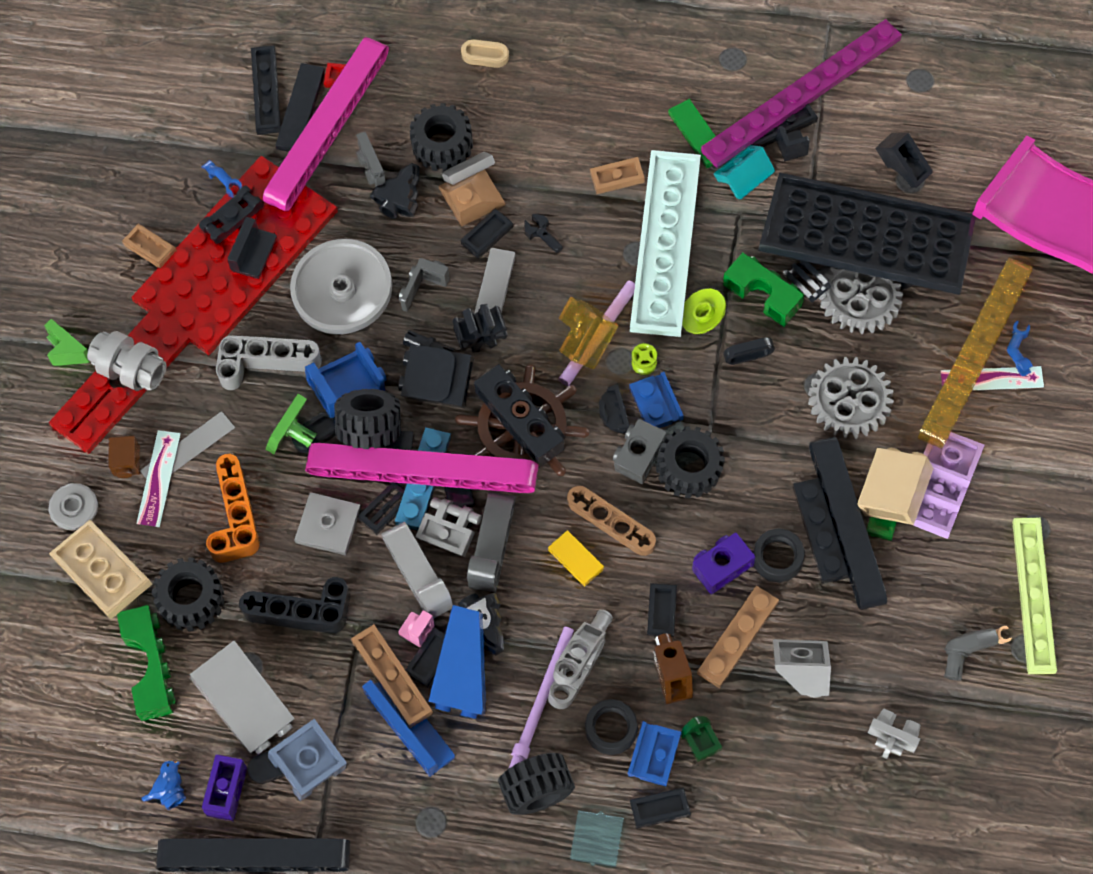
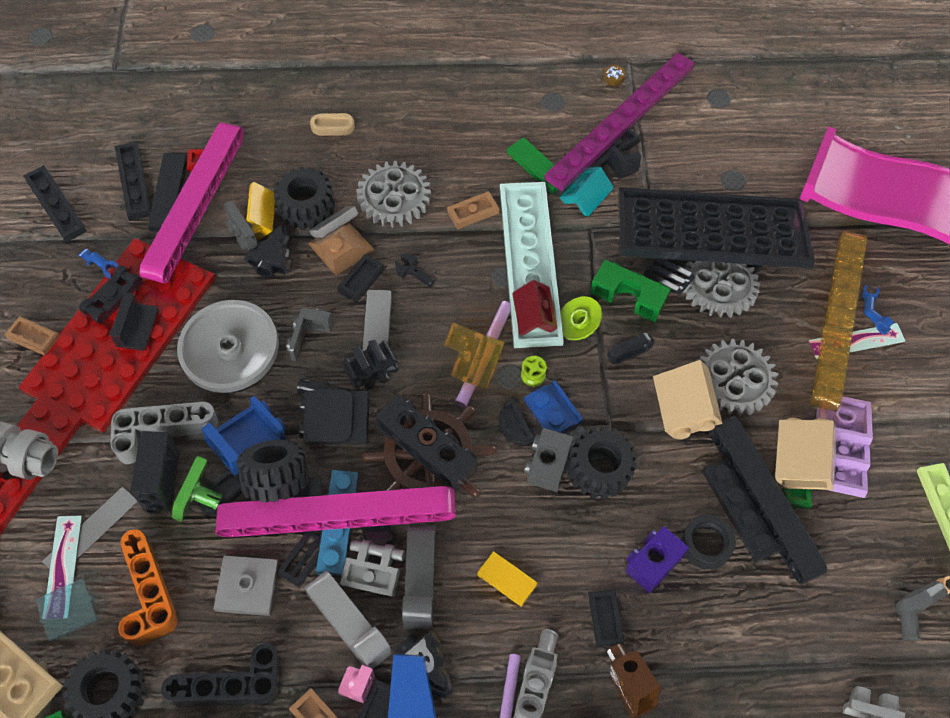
camera: 15 degrees left, 5 degrees down
(124, 456) = (22, 550): reddish brown brick -> none
(158, 518) = (66, 610): none -> clear light blue piece
(183, 105) = (55, 203): none -> black plate
(256, 402) = (155, 471): none -> black window
(394, 145) = (260, 210): none -> yellow panel
(536, 145) = (393, 194): none -> light grey gear
(614, 516) = (537, 529): medium nougat beam -> none
(657, 293) = (534, 308): none -> dark red panel
(737, 637) = (687, 634): medium nougat plate -> none
(791, 413) = (687, 400): none -> tan brick
(804, 665) = (765, 652): light grey slope -> none
(807, 36) = (614, 75): none -> pearl gold tile
(904, 157) = (725, 158): black arch -> none

